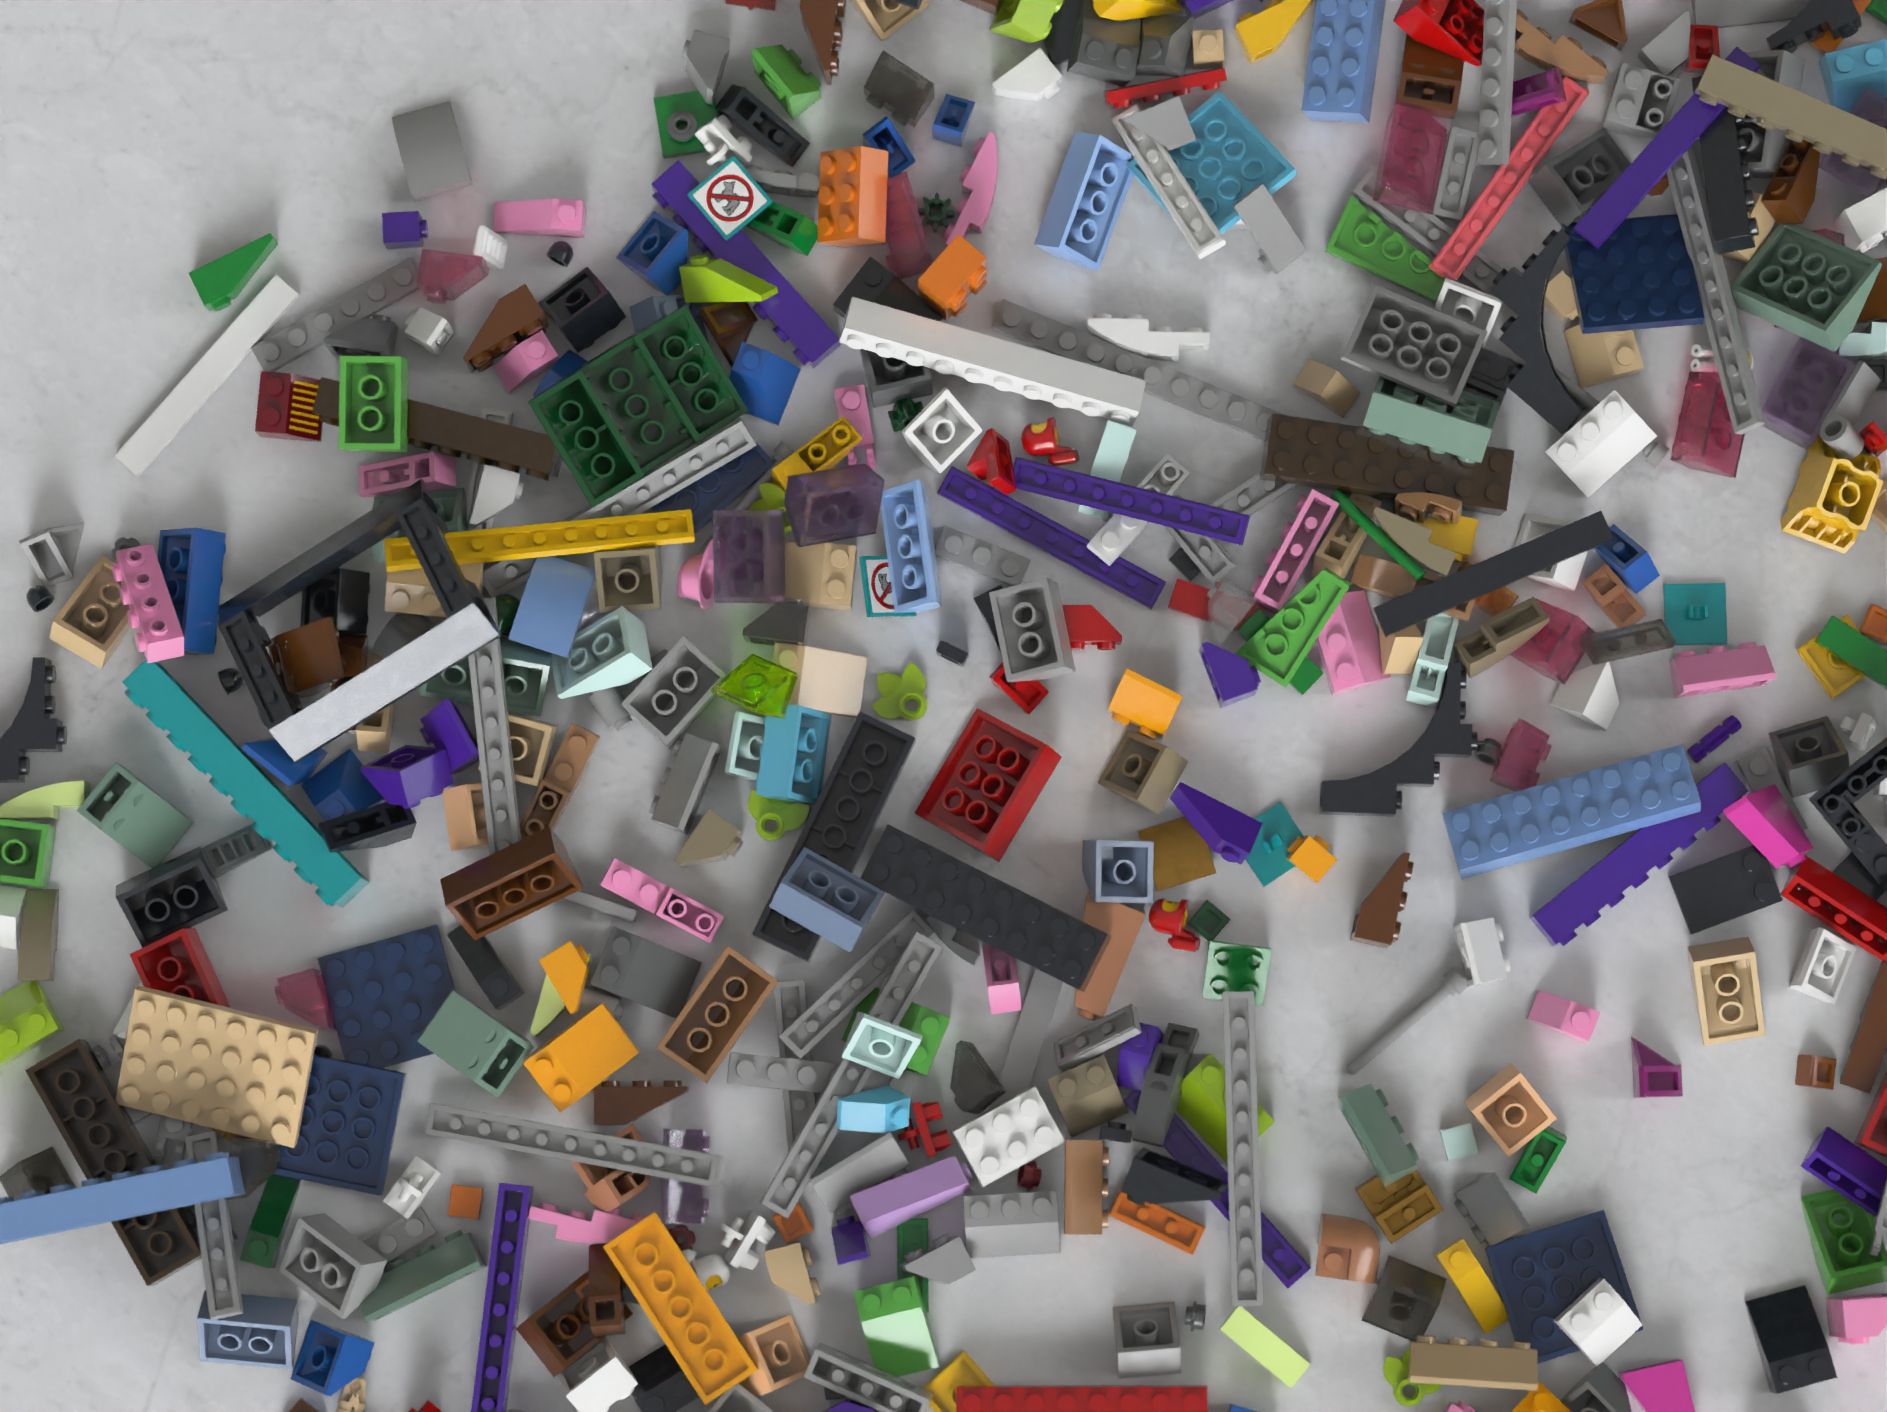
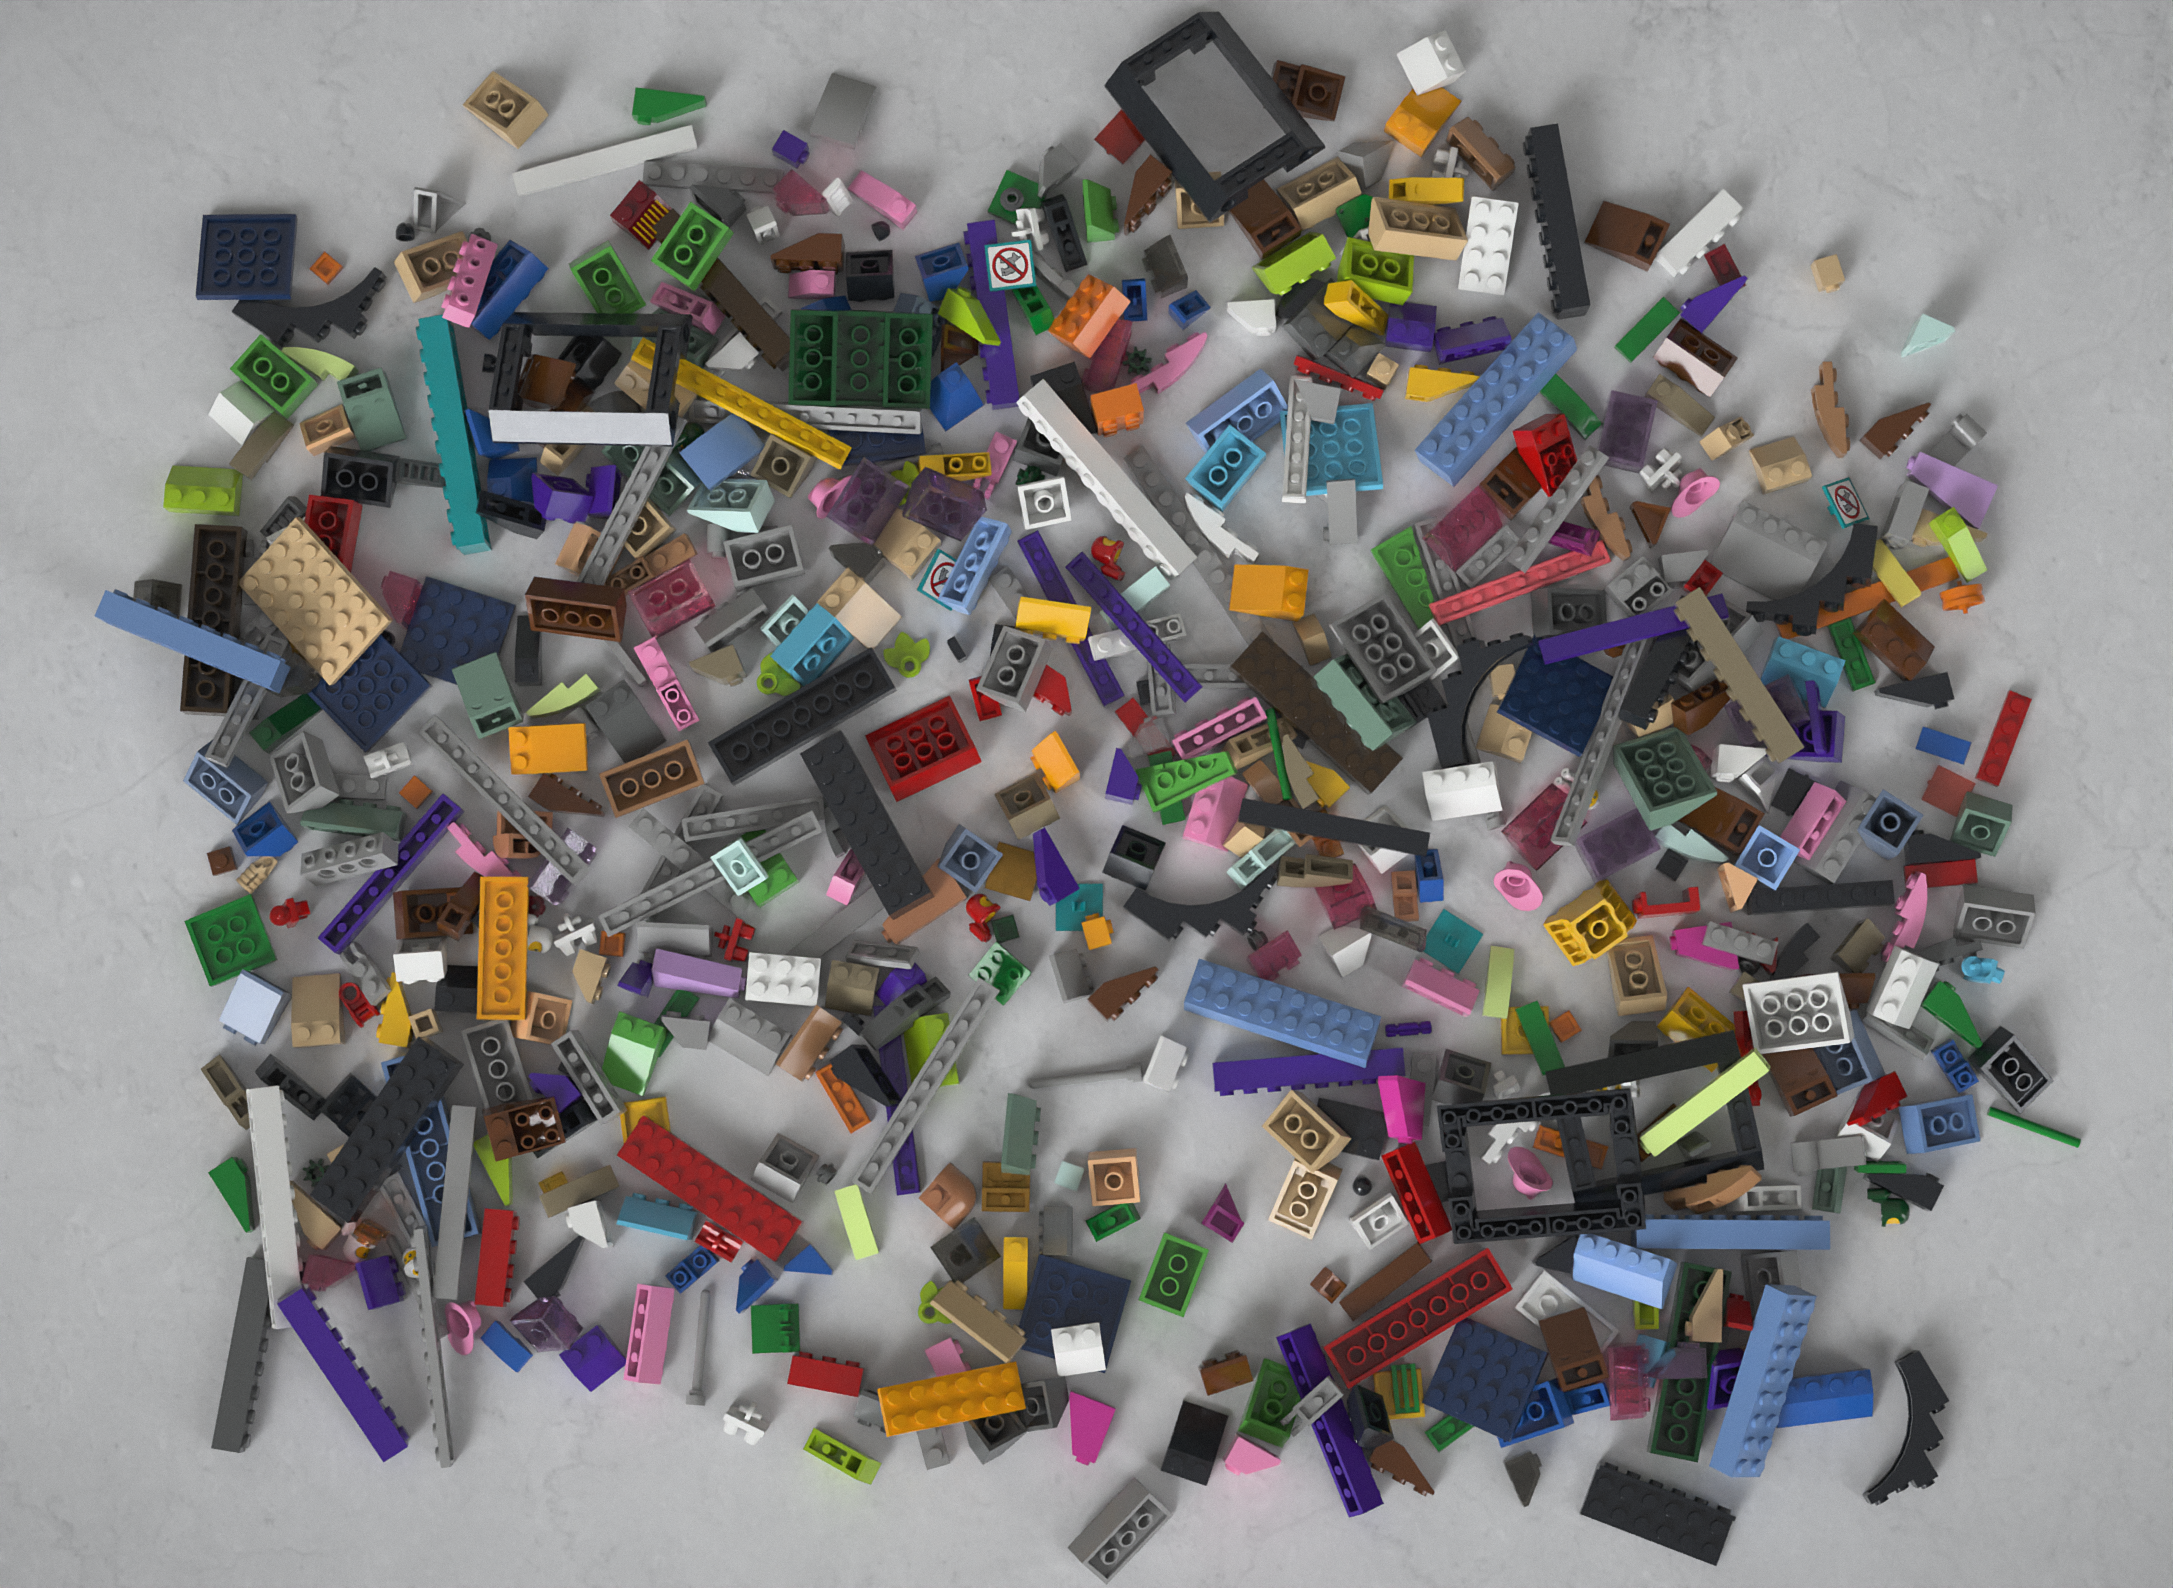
camera: 30 degrees right, 0 degrees up
(60, 390) = (506, 109): none -> tan slope
(99, 871) = (327, 430): none -> light nougat slope
(111, 987) = (290, 501): none -> dark grey slope
(298, 505) = (606, 281): none -> bright green slope
(445, 1323) = (349, 859): none -> light grey brick
(568, 973) = (574, 690): light orange slope -> none
(605, 804) = (671, 599): none -> clear pink slope
(758, 686) = (816, 588): clear neon green slope -> none
(827, 899) = (768, 751): sand blue slope -> none
(874, 1110) = (708, 905): medium azure slope -> none
(973, 1080) = (786, 929): clear smoke slope -> none
(994, 462) = (1065, 545): red slope -> none
(1029, 1176) = (781, 1014): dark red plate -> none
(1036, 551) = (1052, 619): none -> yellow slope
(1111, 264) = (1226, 468): none -> medium azure slope
(1248, 365) = (1269, 591): none -> light orange slope
(1296, 750) = (1133, 857): none -> black slope
(1315, 924) = (1070, 975): none -> light grey slope
(1418, 504) = (1317, 752): medium nougat slope -> none
(1563, 1016) = (1189, 1140): bright pink slope -> none
(1645, 1173) = (1173, 1274): none -> bright green brick
(1683, 922) = (1306, 1131): none -> tan slope
(1730, 506) = (1518, 887): none -> bright pink piece
(1773, 1240) = (1225, 1373): none -> reddish brown slope
(1777, 624) = (1498, 982): none -> yellowish green slope
(1782, 947) = (1360, 1191): none -> black hinge
(1839, 424) = (1634, 875): light grey door -> none

